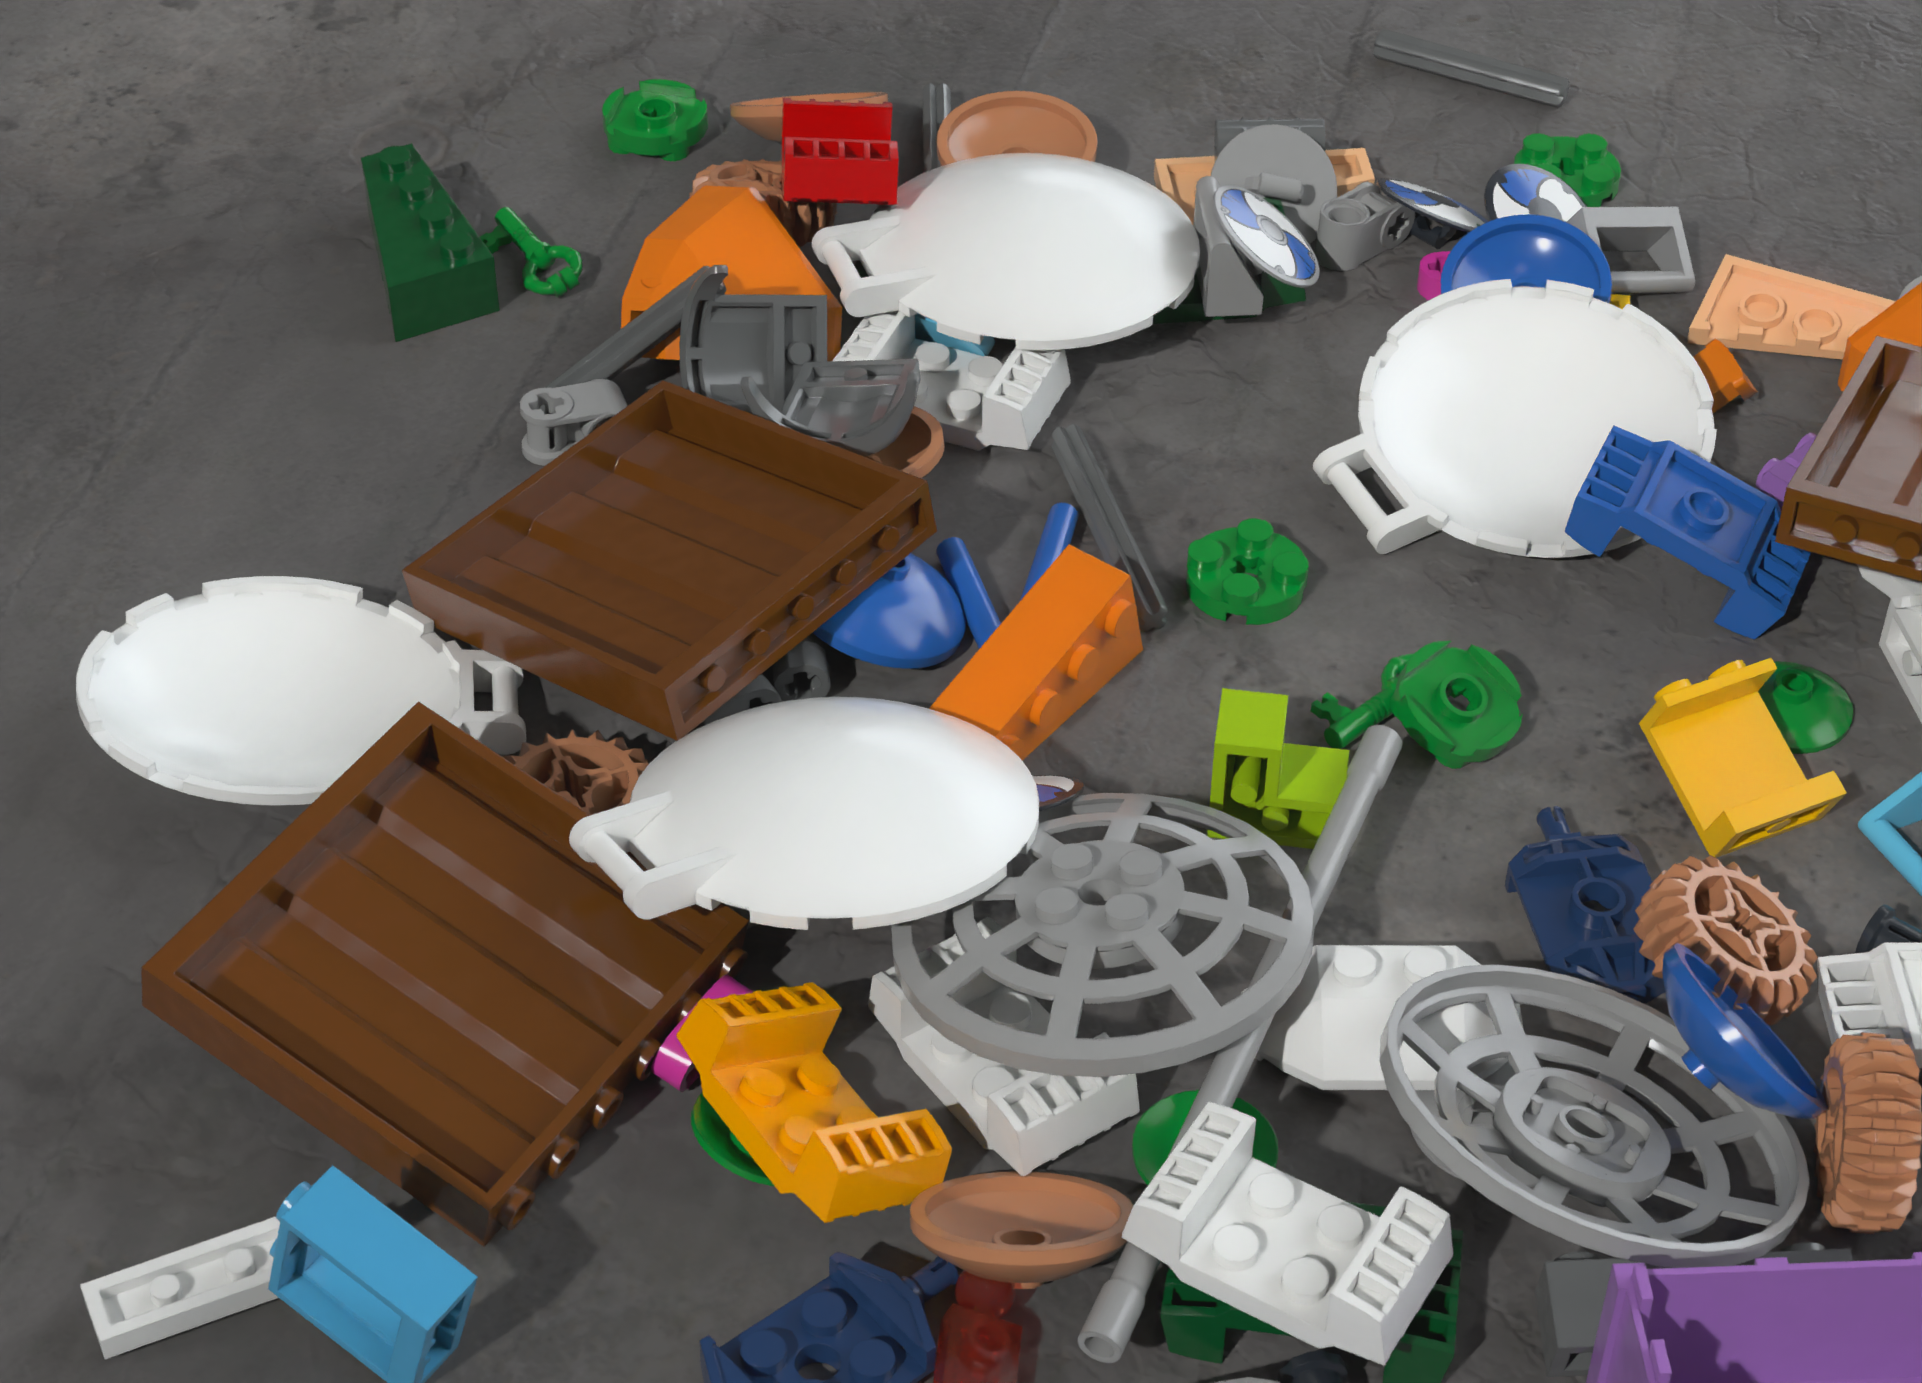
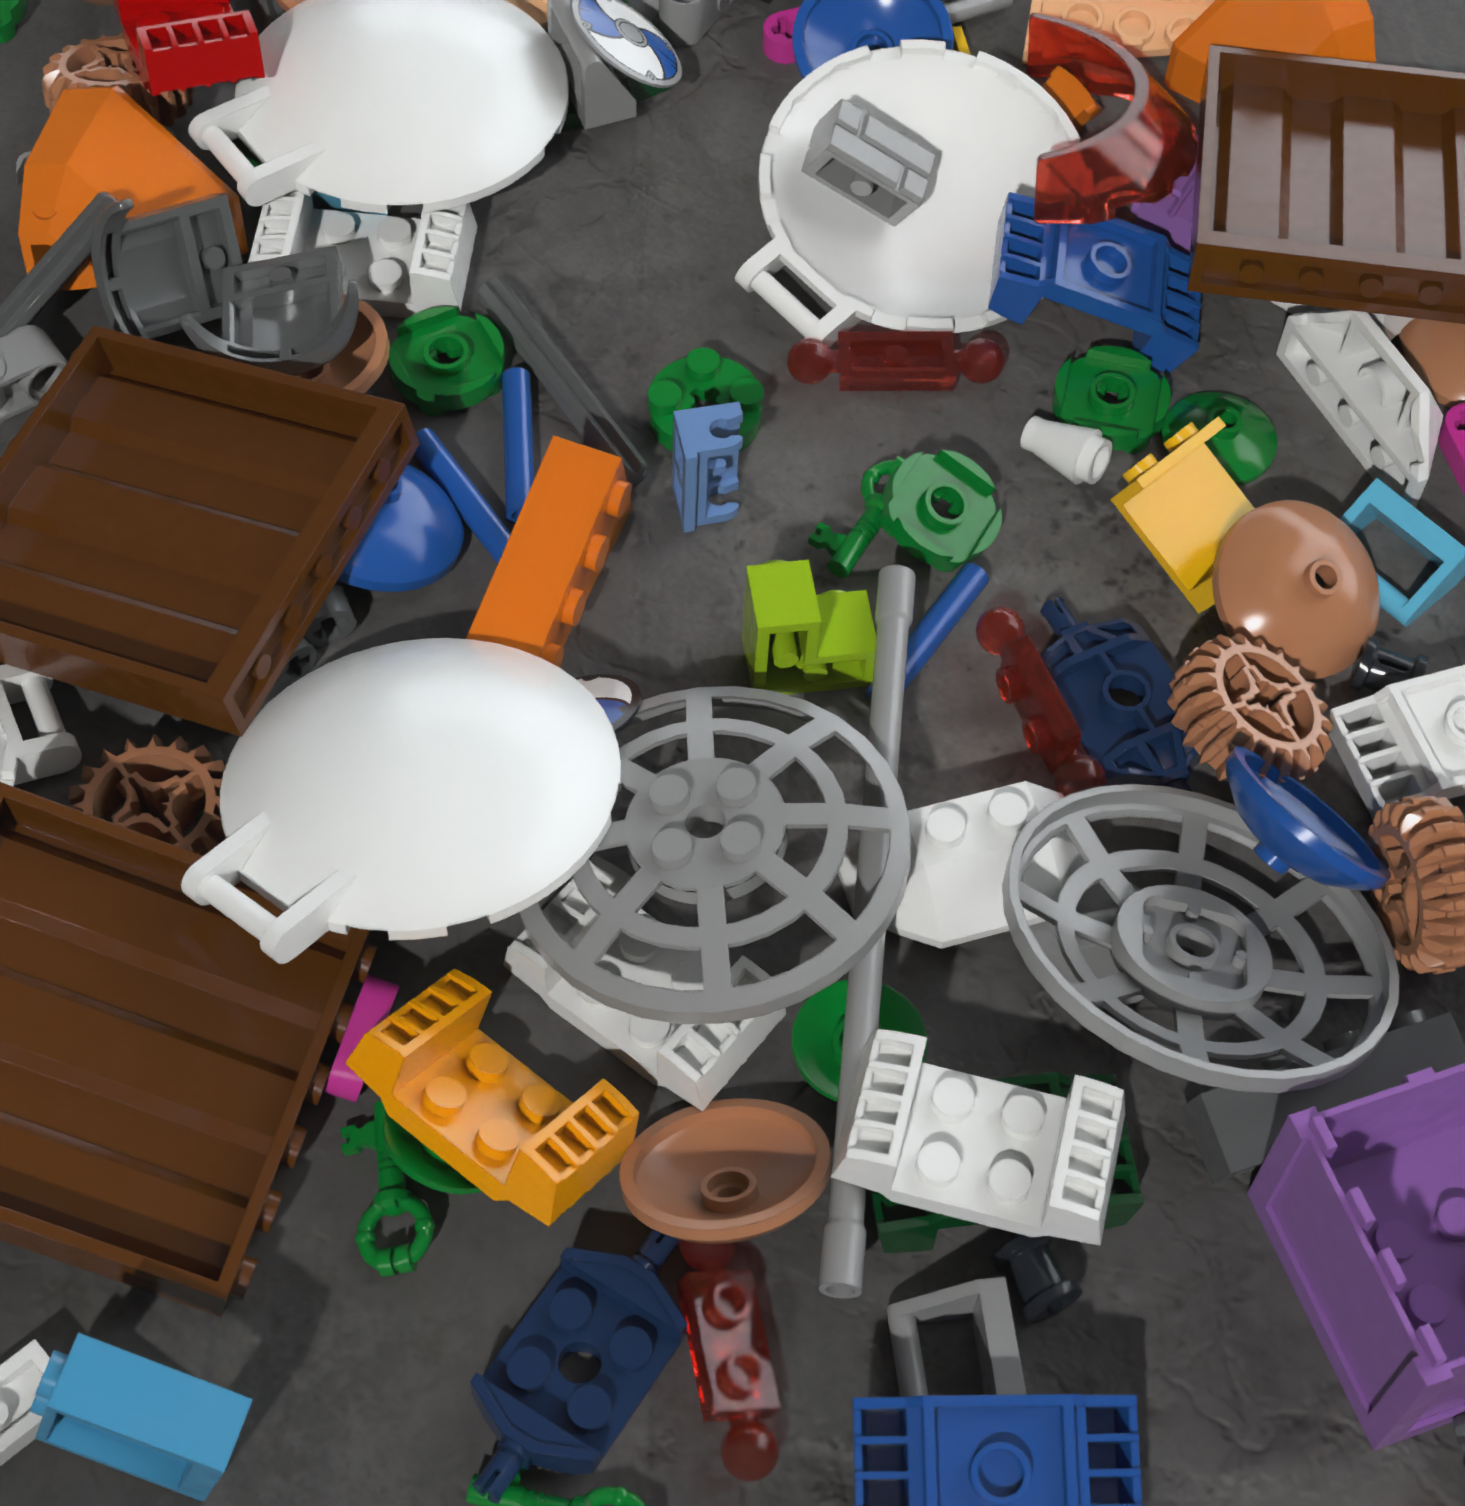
camera: 20 degrees left, 15 degrees up
(682, 1181) = (389, 1201): none -> green piece
(1022, 501) = (453, 385): none -> green plate
(1225, 611) = (705, 462): none -> medium blue hinge
(1417, 811) = (941, 619): none -> blue piece
(1458, 570) = (895, 361): none -> clear red plate
(1481, 384) = (868, 162): none -> light grey brick
(1496, 875) = (1043, 711): none -> clear red plate
(1615, 679) = (1070, 449): none -> white cone
(1647, 637) = (1119, 371): none -> green plate
(1747, 415) = (1128, 160): none -> clear red windscreen
(1784, 833) = (1270, 588): none -> nougat dish

